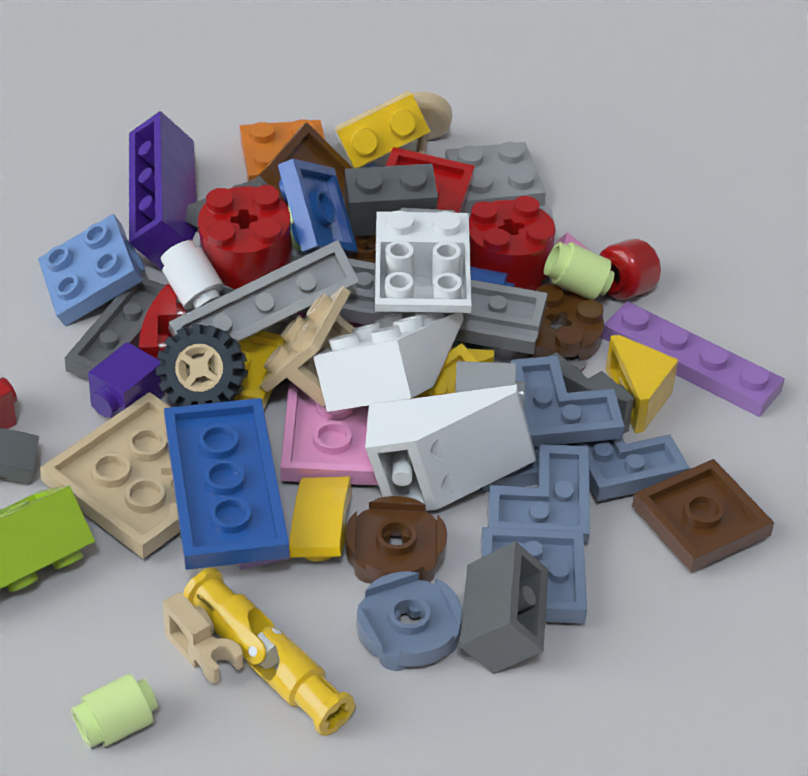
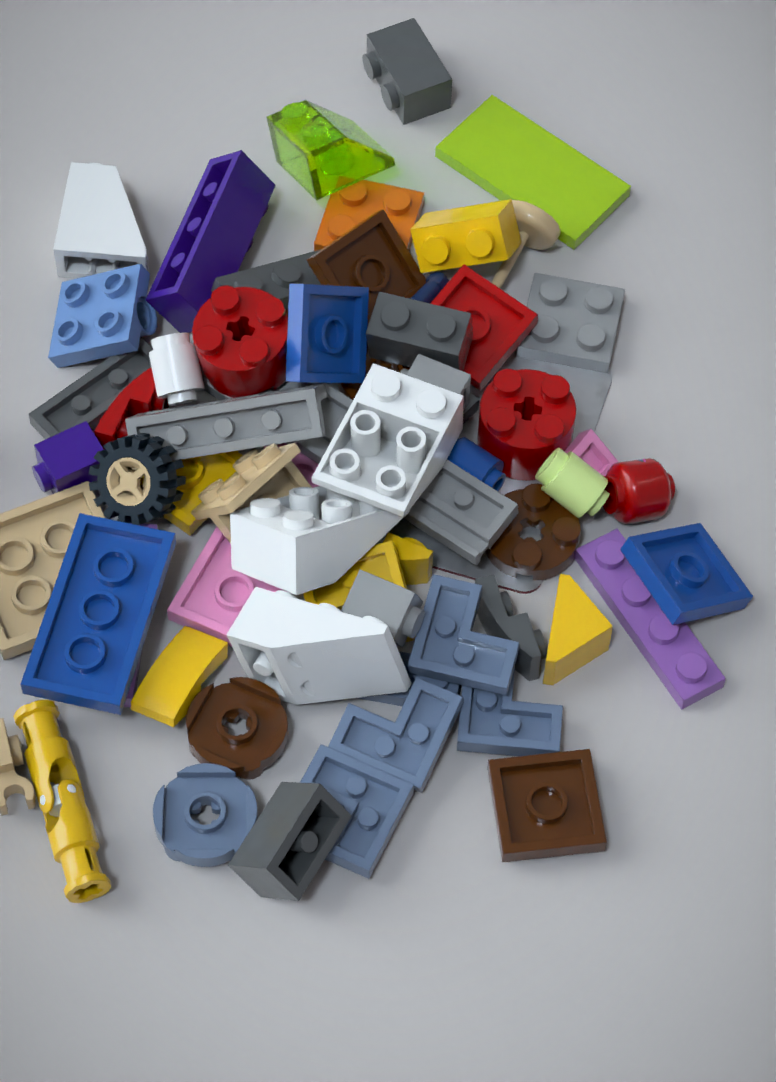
camera: 25 degrees right, 15 degrees up
(50, 204) = (96, 224): none -> white slope
(220, 105) = (324, 148): none -> clear neon green slope
(258, 44) = (407, 71): none -> dark grey brick
(368, 79) = (529, 164): none -> lime tile
(707, 311) = (686, 573): none -> blue plate

